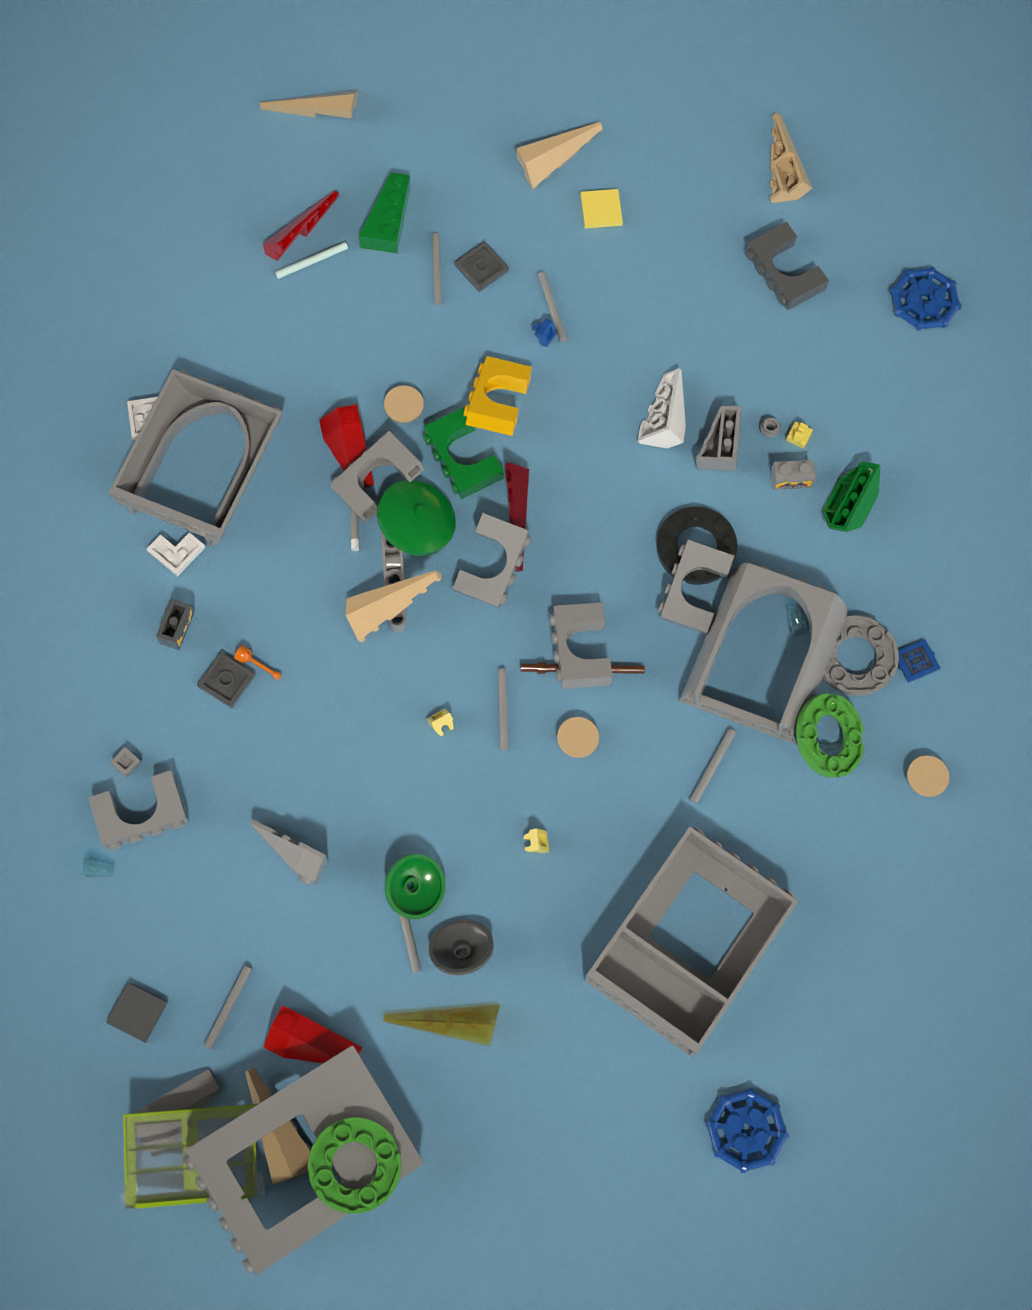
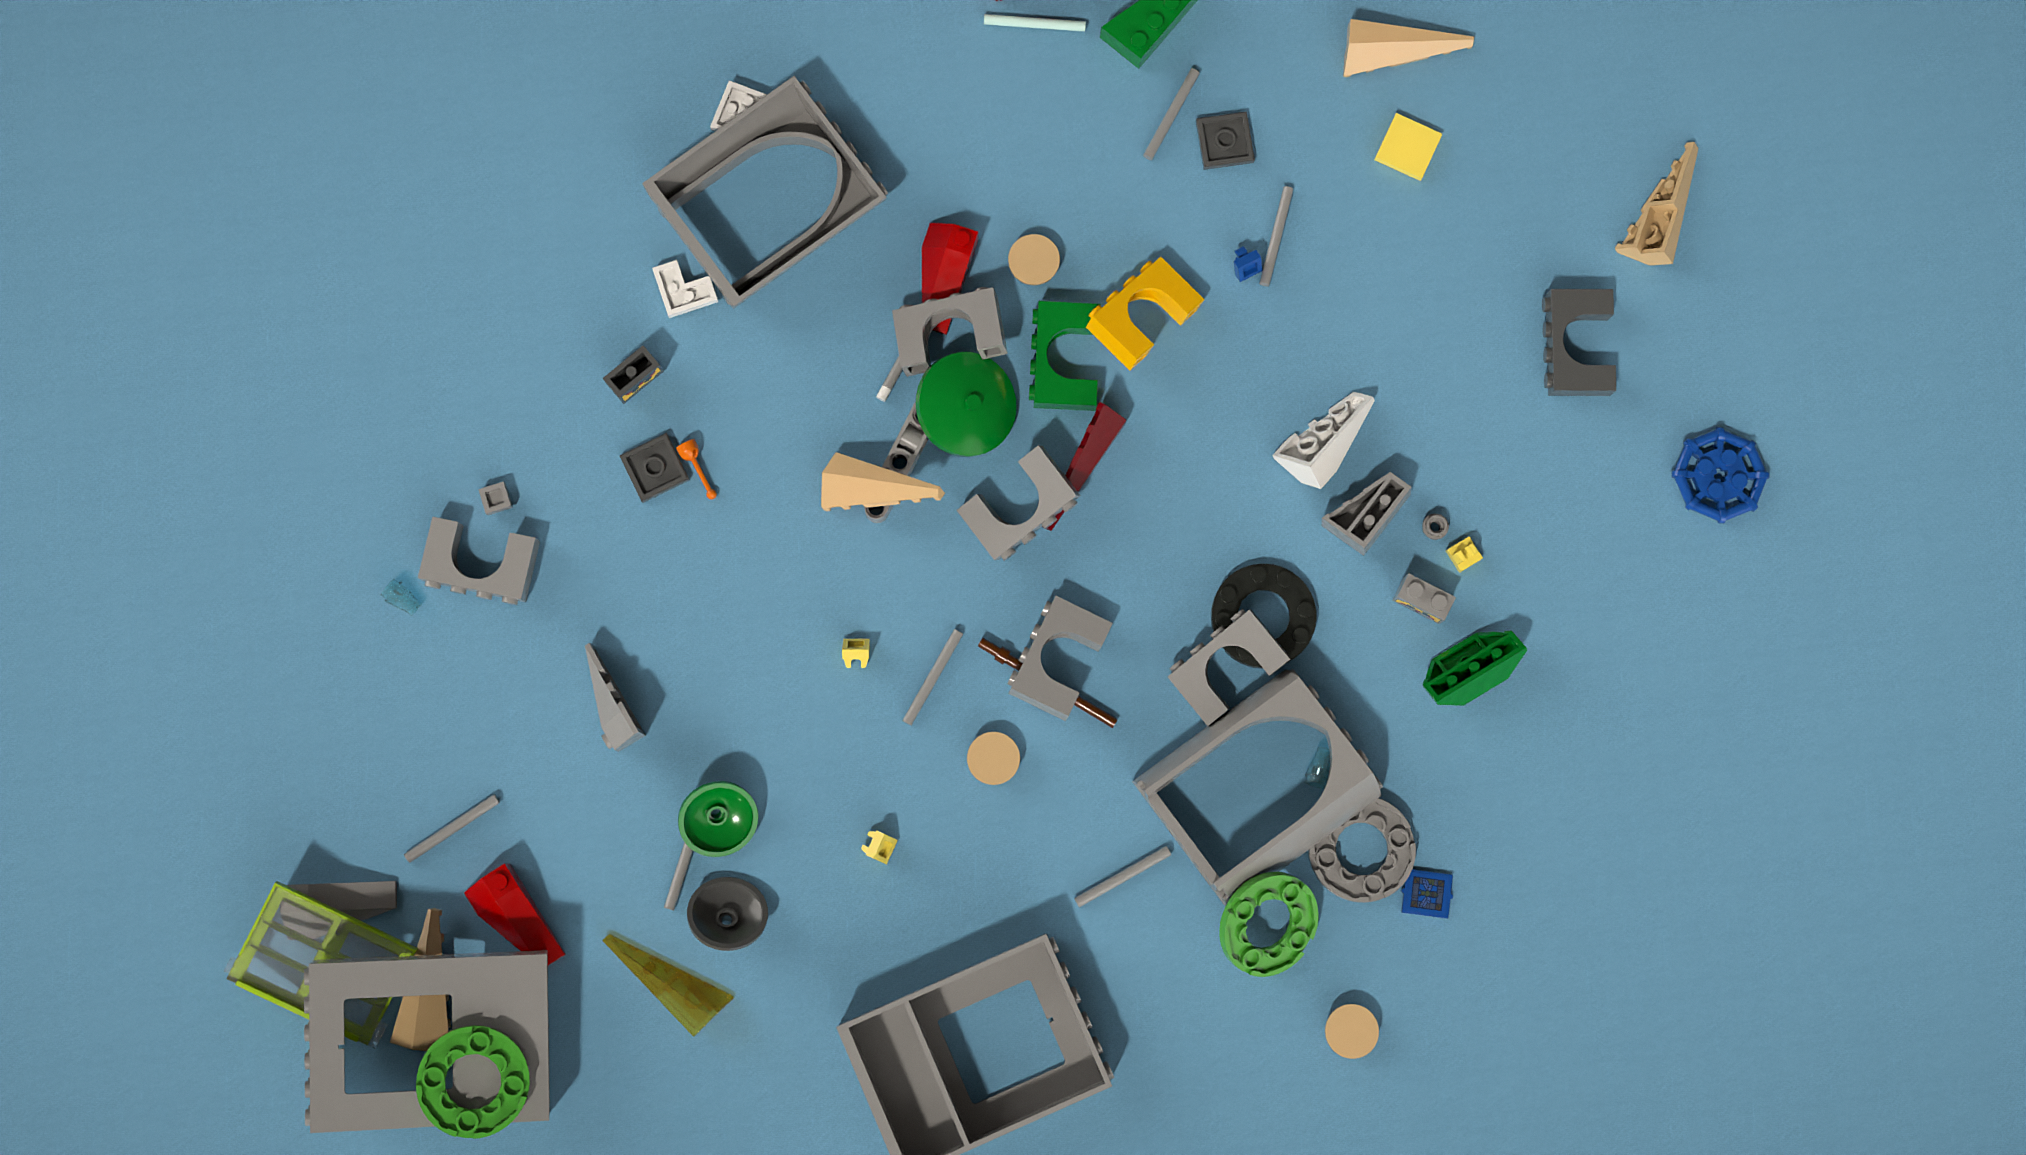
camera: 30 degrees right, 10 degrees up
(136, 1013) = (355, 777): dark grey tile -> none

